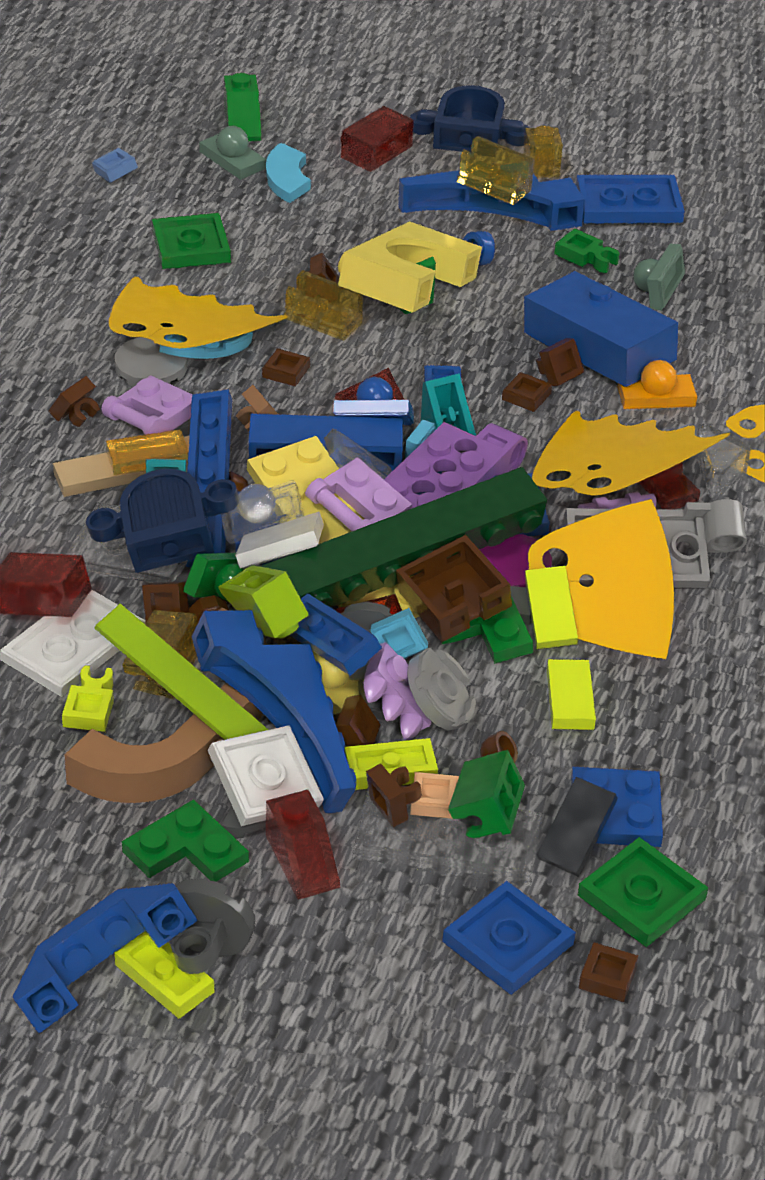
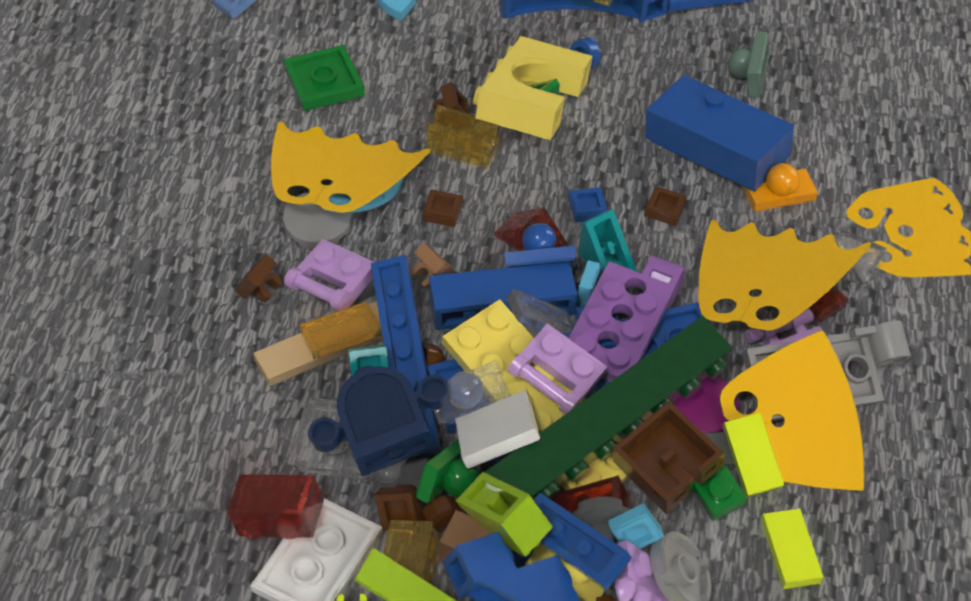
camera: 10 degrees left, 10 degrees up
(560, 362) = (689, 171): reddish brown tile -> none
(584, 249) = (678, 42): green plate -> none

